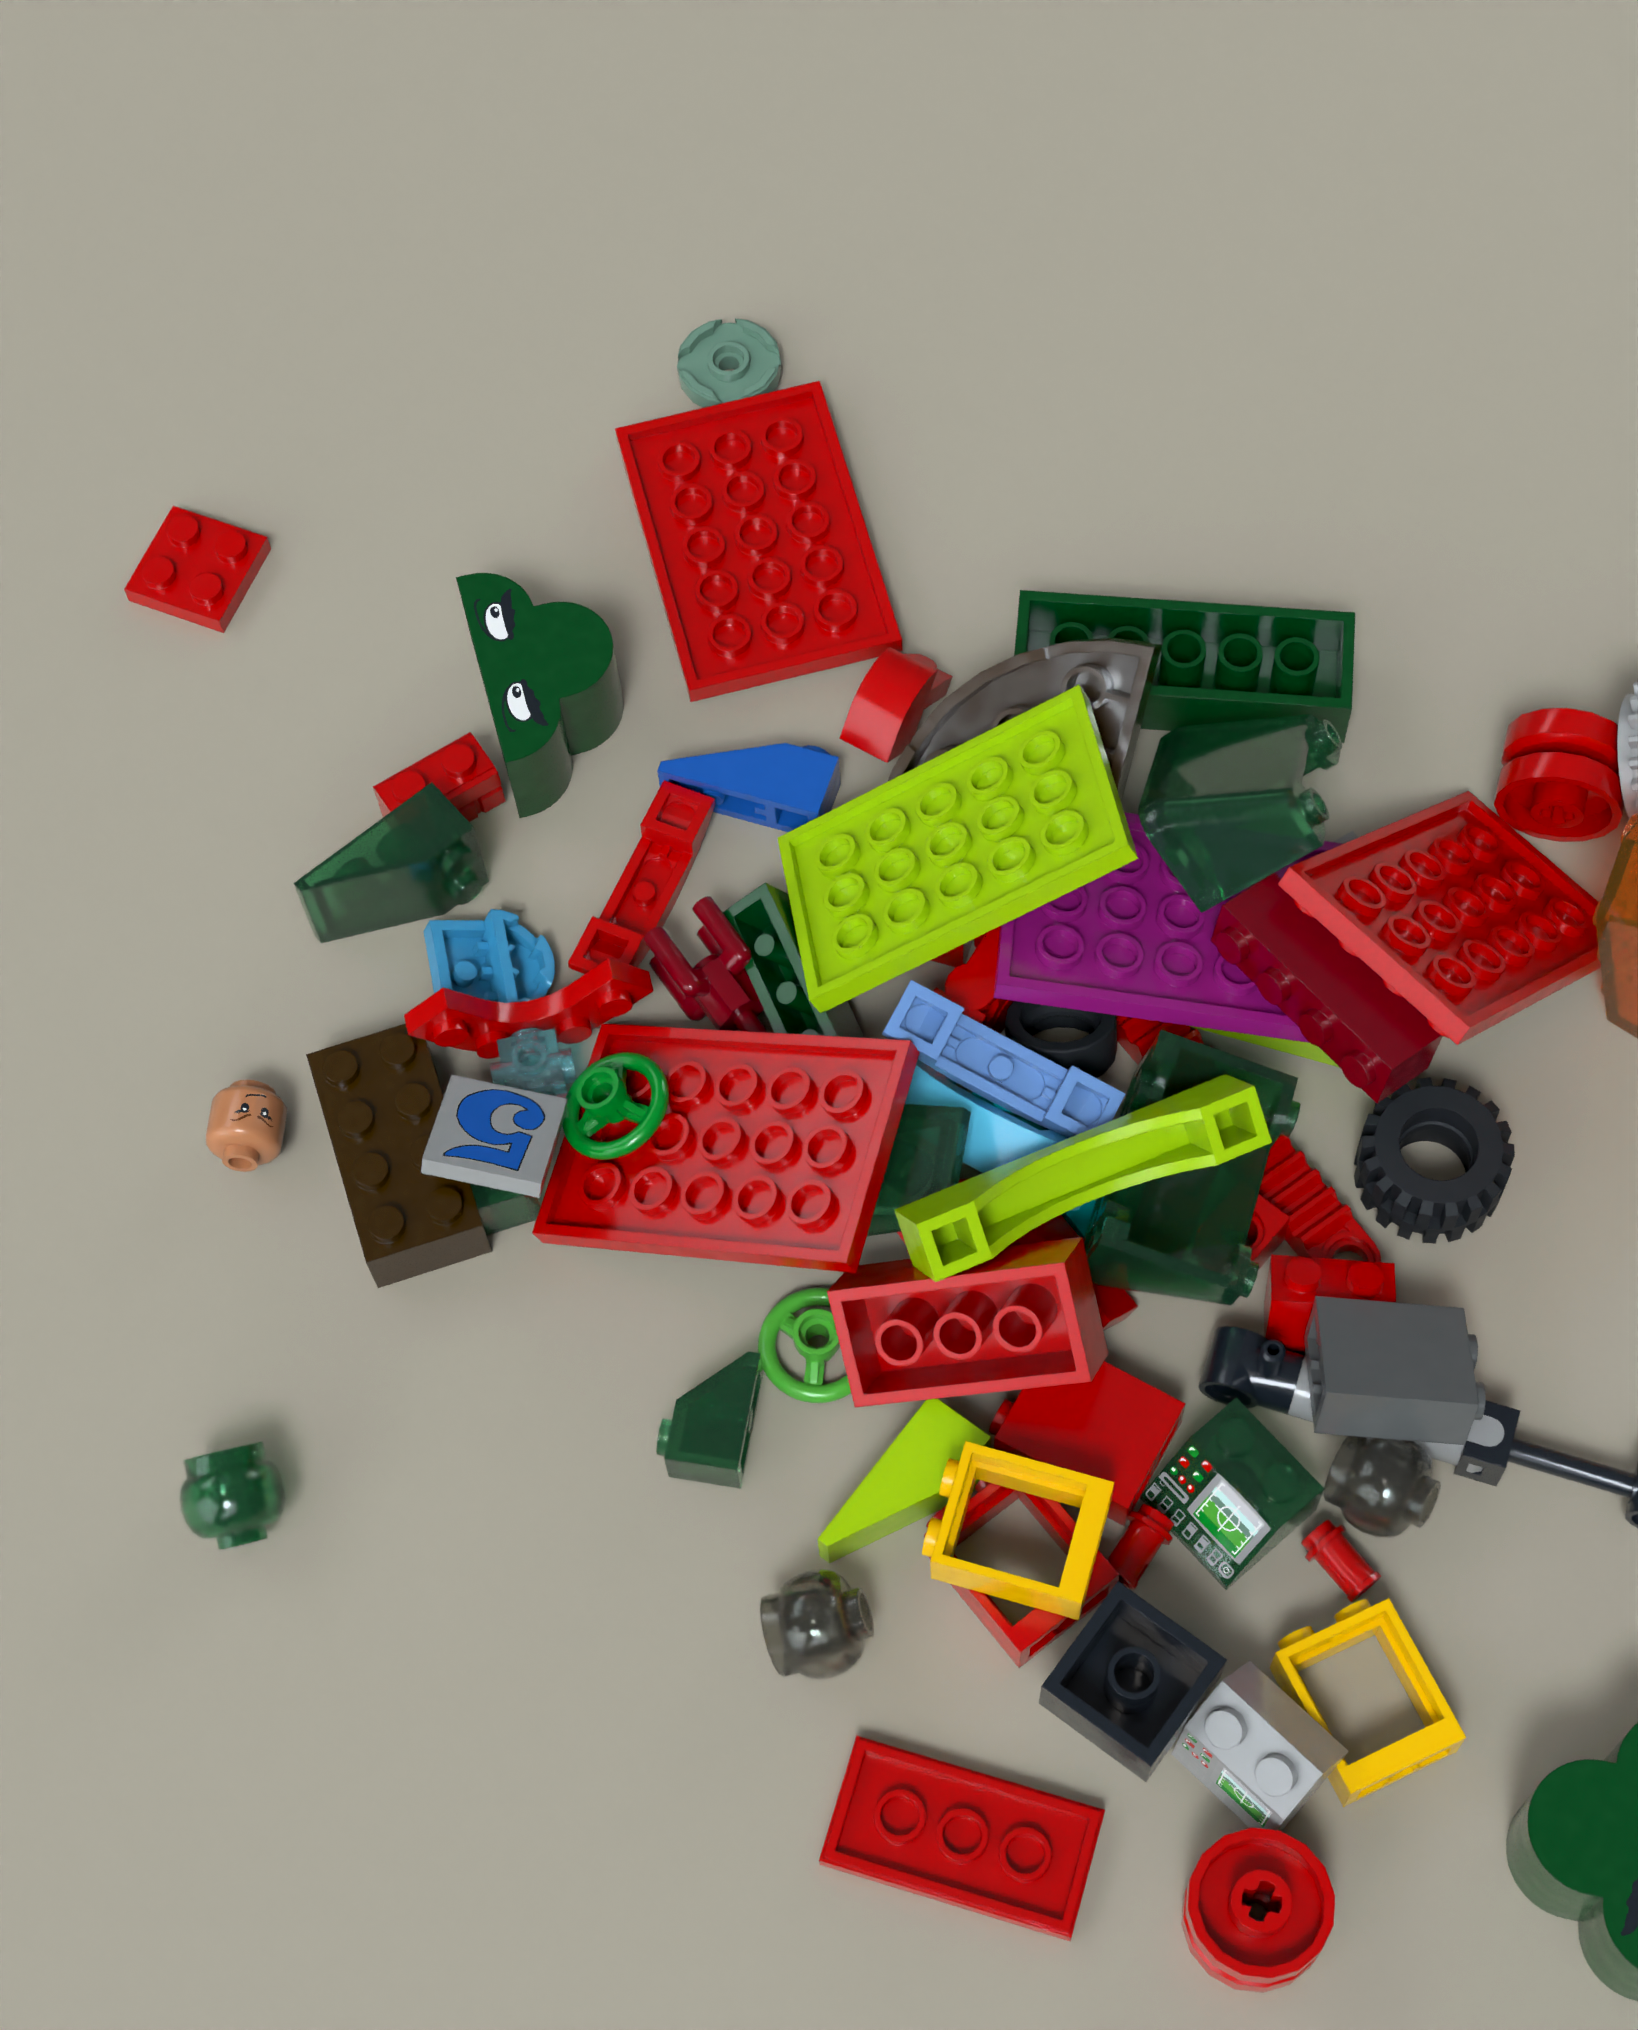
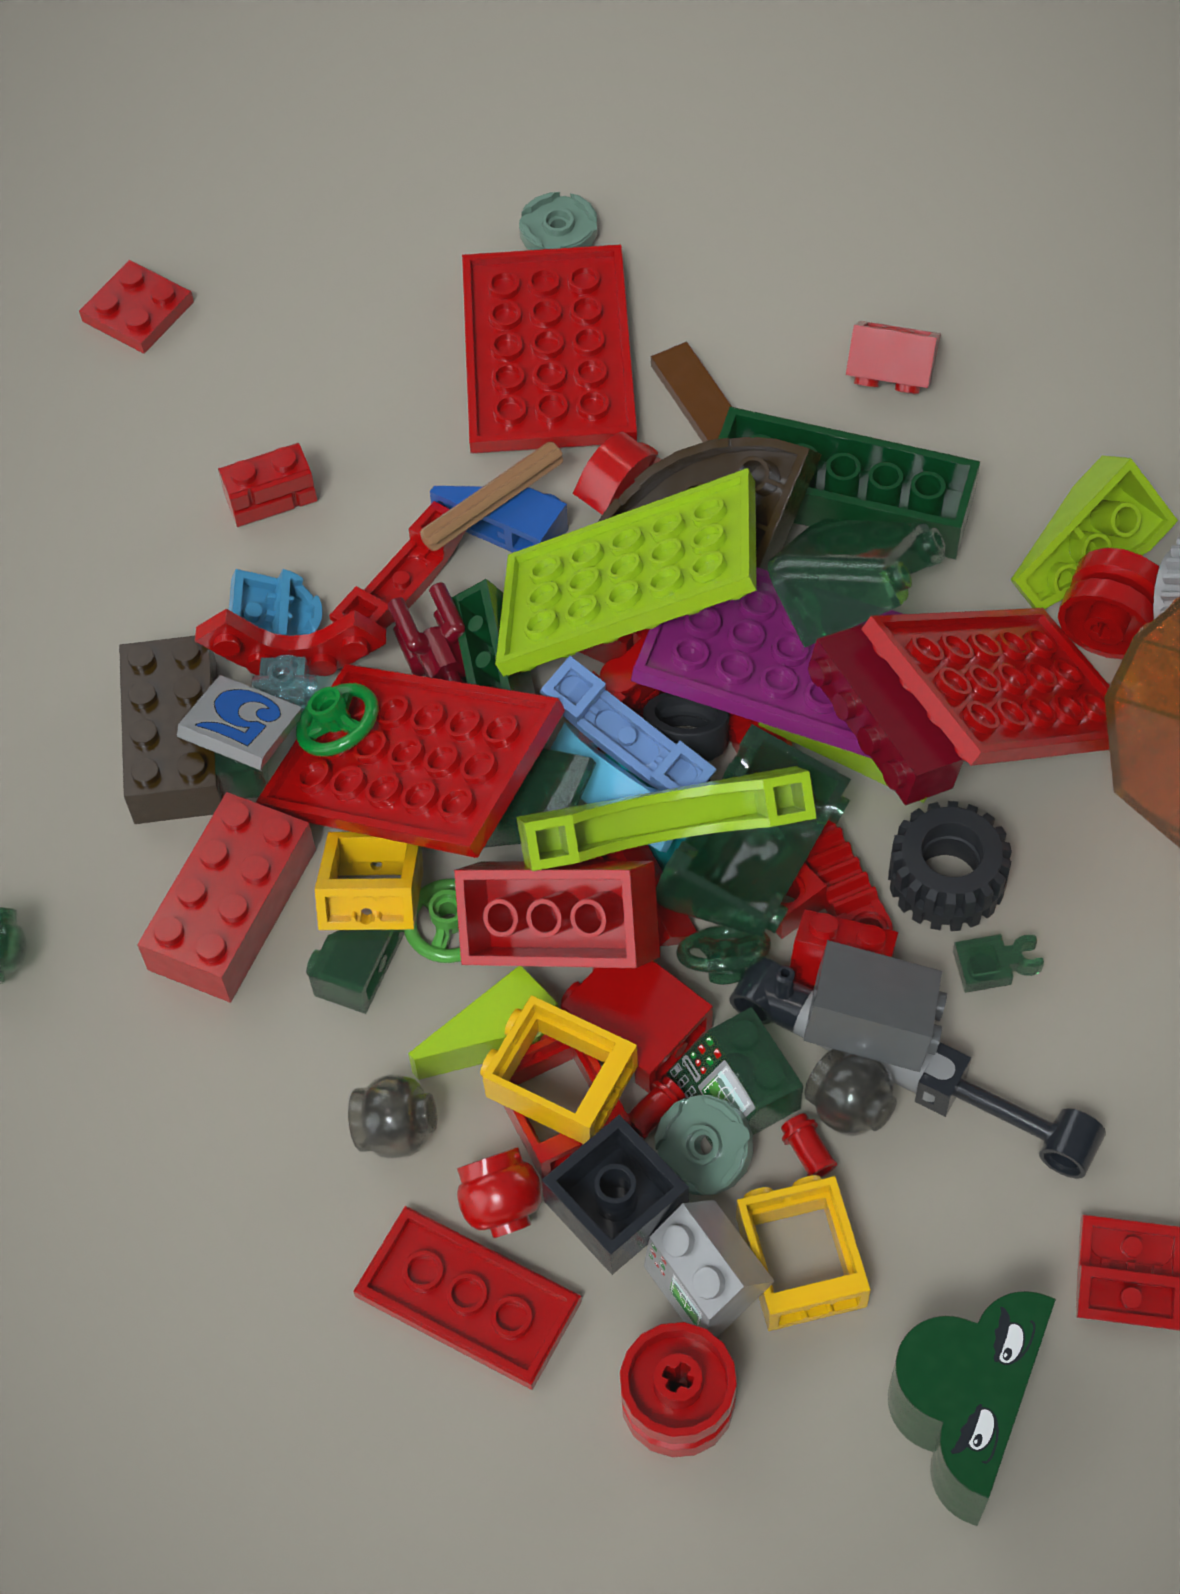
camera: 10 degrees right, 5 degrees down
(246, 1125) = (65, 690): nougat head -> none
(396, 872) = (218, 530): clear green slope -> none
(530, 1369) = (227, 897): none -> red brick
(546, 683) = (361, 420): dark green brick -> none
(689, 1354) = (390, 899): none -> yellow window
(742, 765) = (491, 496): none -> medium nougat axle
(961, 571) = (692, 389): none -> reddish brown tile
(974, 1698) = (499, 1193): none -> red piece
(1180, 1331) = (725, 957): none -> clear green piece
(1181, 1590) = (680, 1140): none -> sand green plate
(1204, 478) = (892, 356): none -> slope
(1509, 1278) = (989, 964): none -> clear green plate
(1518, 658) = (1104, 509): none -> lime wedge

